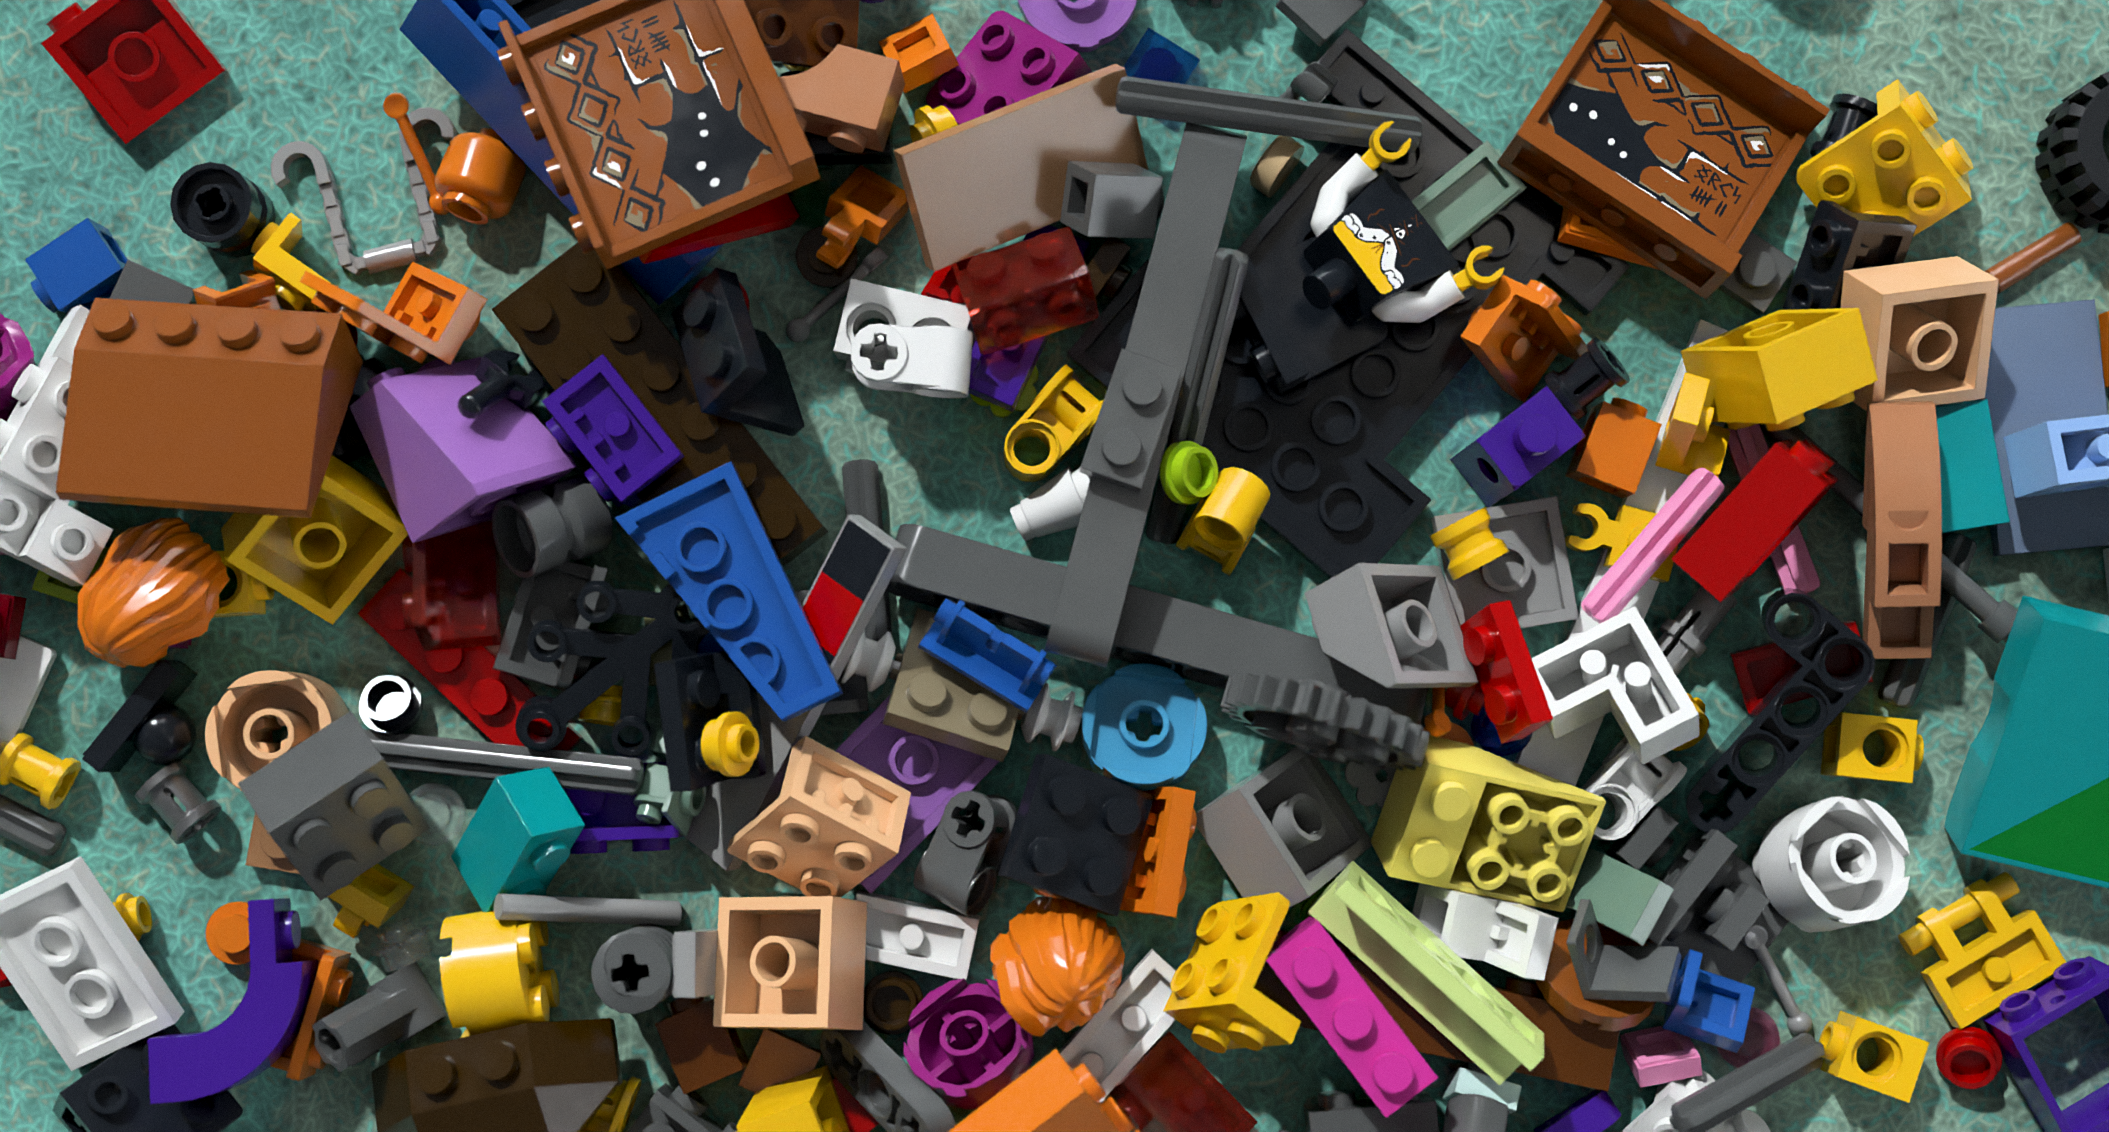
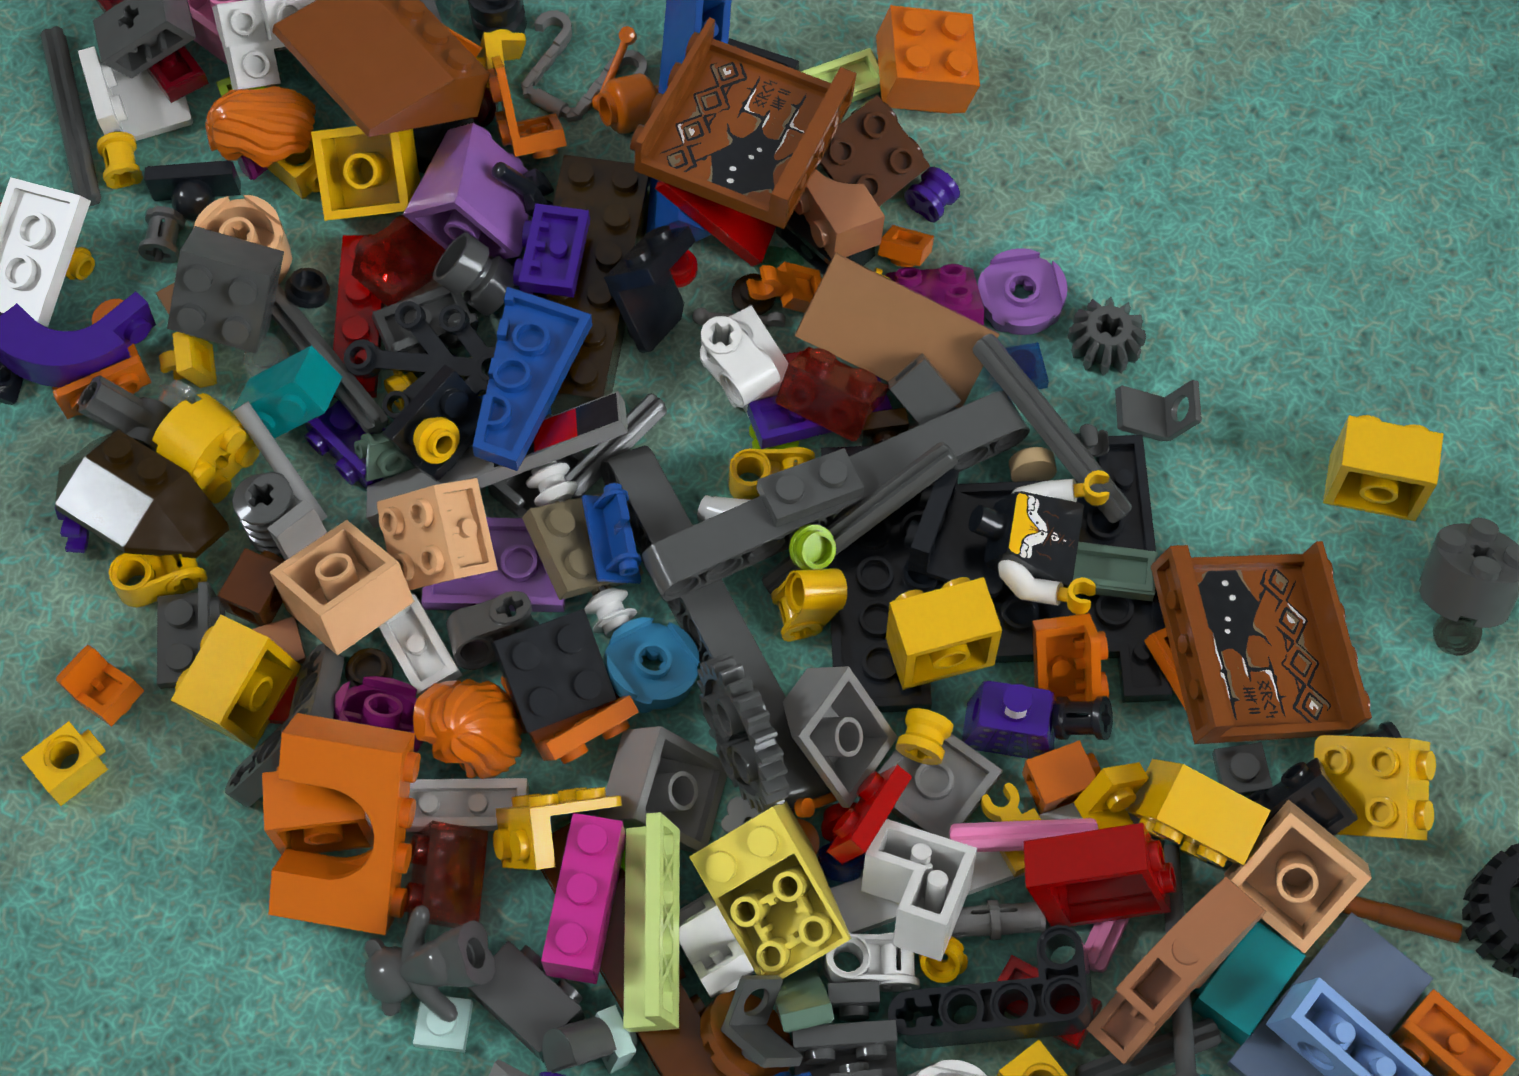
camera: 50 degrees right, 20 degrees down
(1395, 433) = (943, 632): none -> yellow brick

